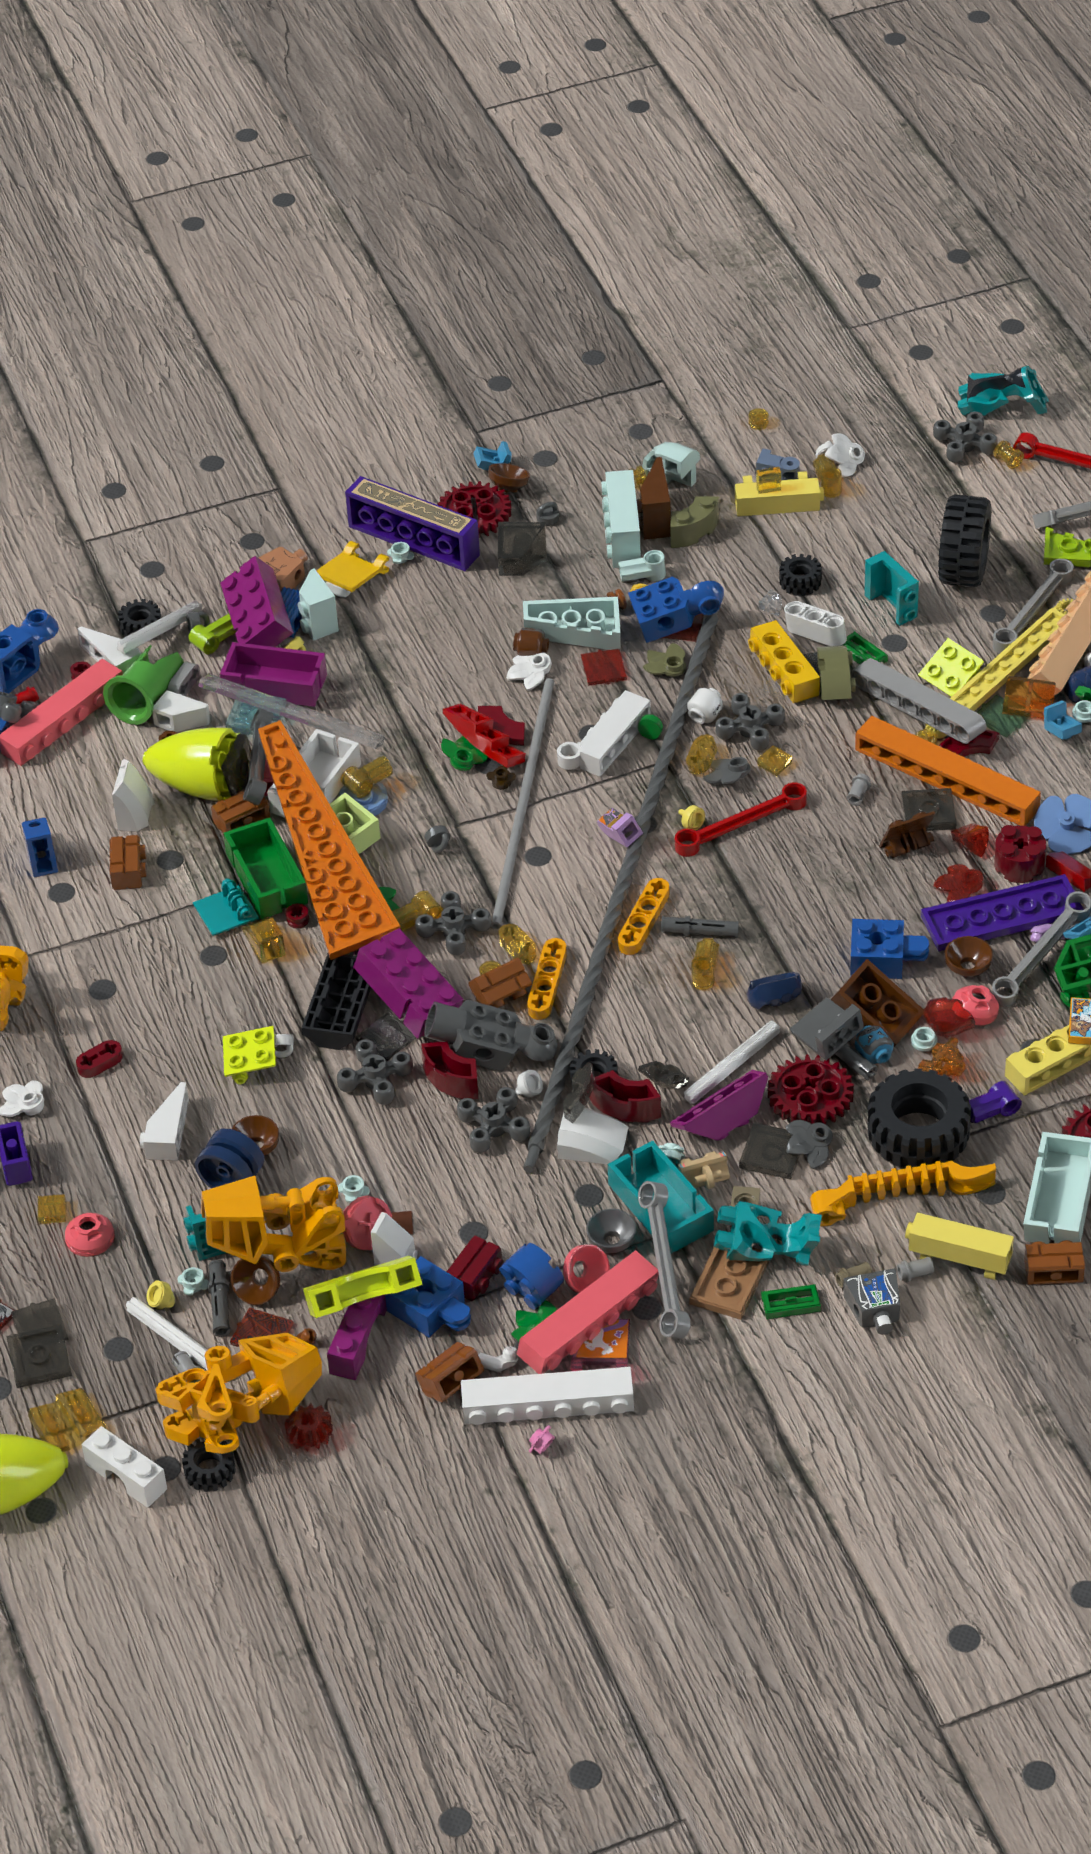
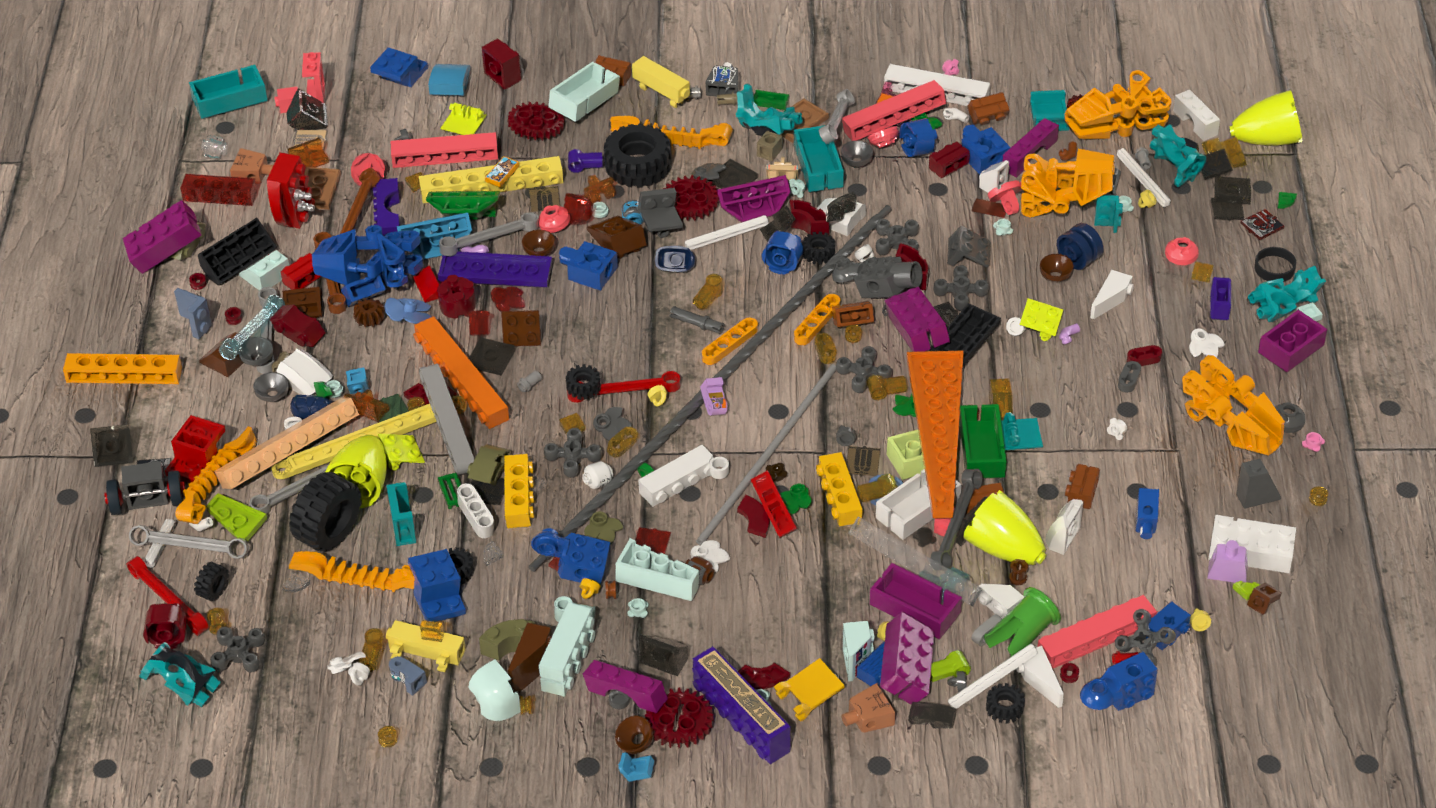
camera: 160 degrees left, 0 degrees up
(74, 1384) = (1216, 164): none -> clear smoke piece
(105, 945) = (1117, 428): none -> white plate
(105, 1024) = (1132, 377): none -> dark grey beam
(129, 1371) = (1170, 148): none -> teal hips
(205, 585) = (936, 715): none -> clear smoke slope
(212, 1058) = (1067, 332): none -> lavender arm
(354, 1406) = (1049, 106): none -> teal panel
(362, 1285) = (1003, 131): neon yellow arch -> none
(385, 1132) = (968, 244): none -> dark grey bracket
(401, 580) = (764, 677): none -> dark red tile
(405, 826) = (863, 460): none -> clear smoke piece
(417, 774) = (839, 488): none -> yellow brick
(566, 507) = (645, 691): none -> magenta arch
(576, 591) = (637, 608): none -> light aqua plate
(633, 1033) = (782, 252): none -> blue brick
(785, 777) = (579, 374): none -> black tyre
(800, 533) = (436, 586): none -> blue bracket
(835, 538) = (321, 568): none -> light orange piece
(971, 608) = (364, 465): none -> neon yellow cylinder
(1009, 1037) = (543, 197): none -> clear smoke piece
(1041, 473) = (211, 581): none -> black tyre
(1052, 422) = (165, 624): none -> dark red brick

